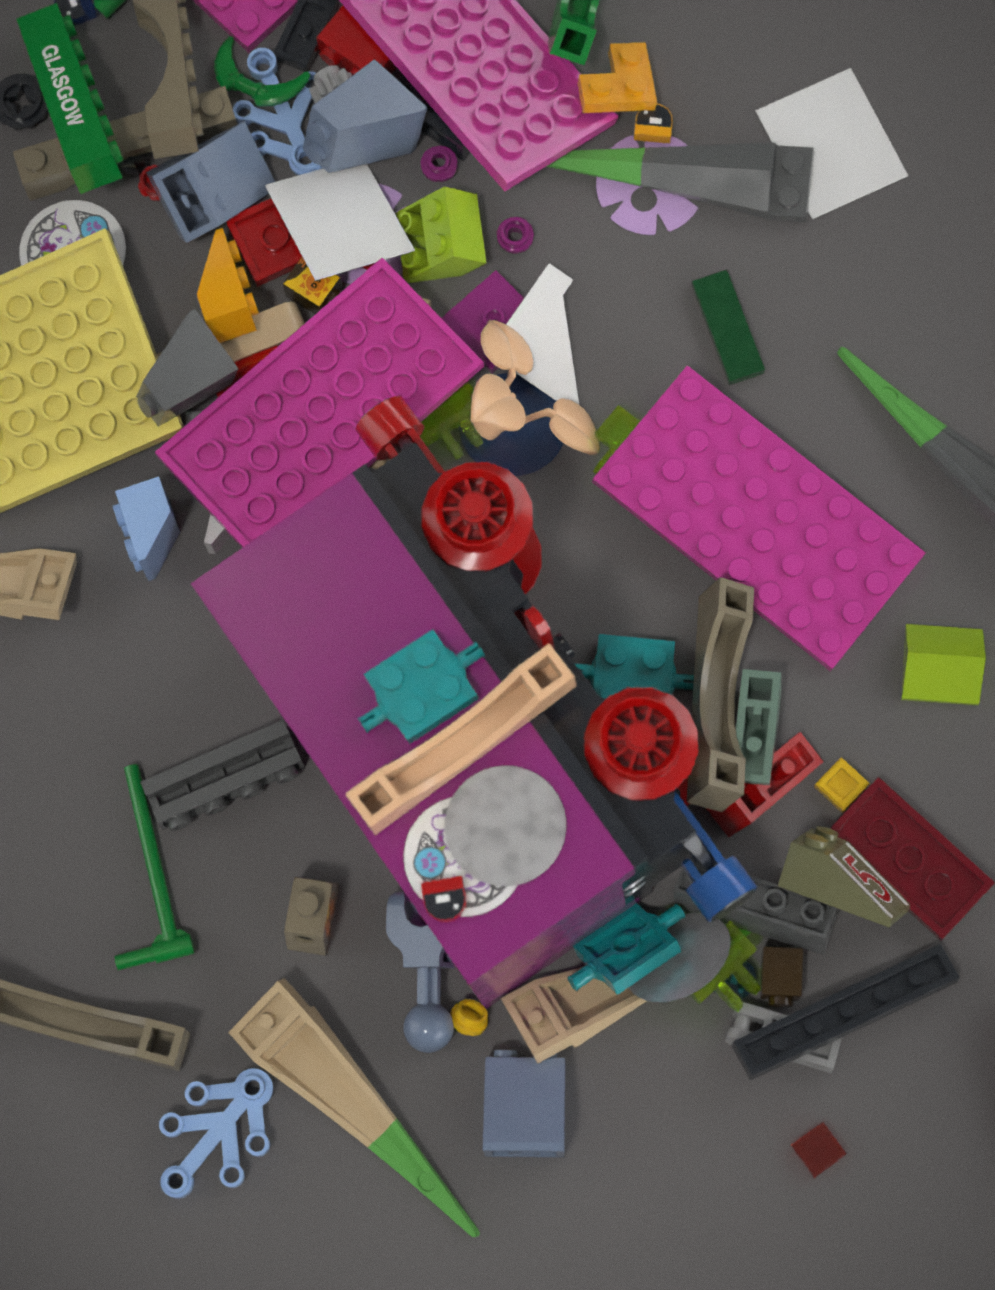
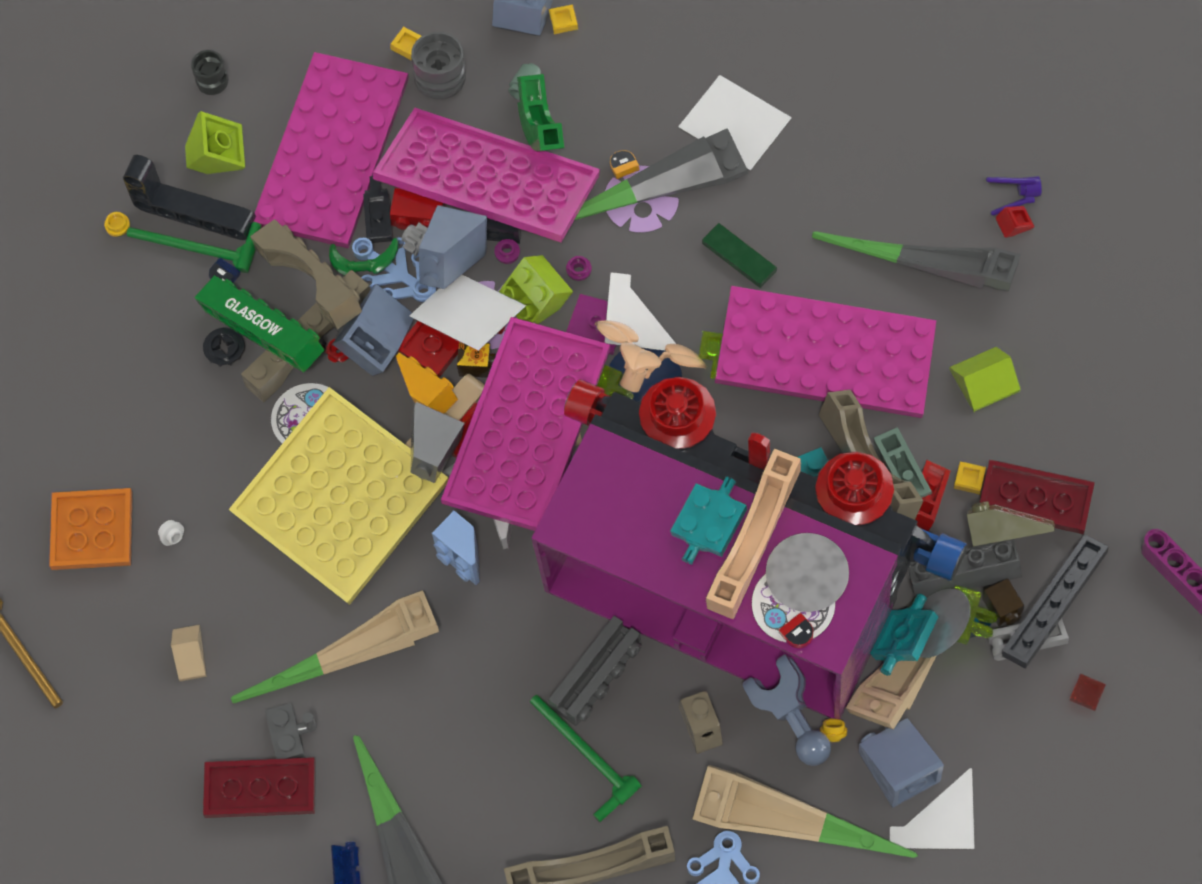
camera: 30 degrees left, 10 degrees down
(537, 1211) = (944, 822): none -> white sticker
(626, 88) = (593, 149): light orange plate -> none

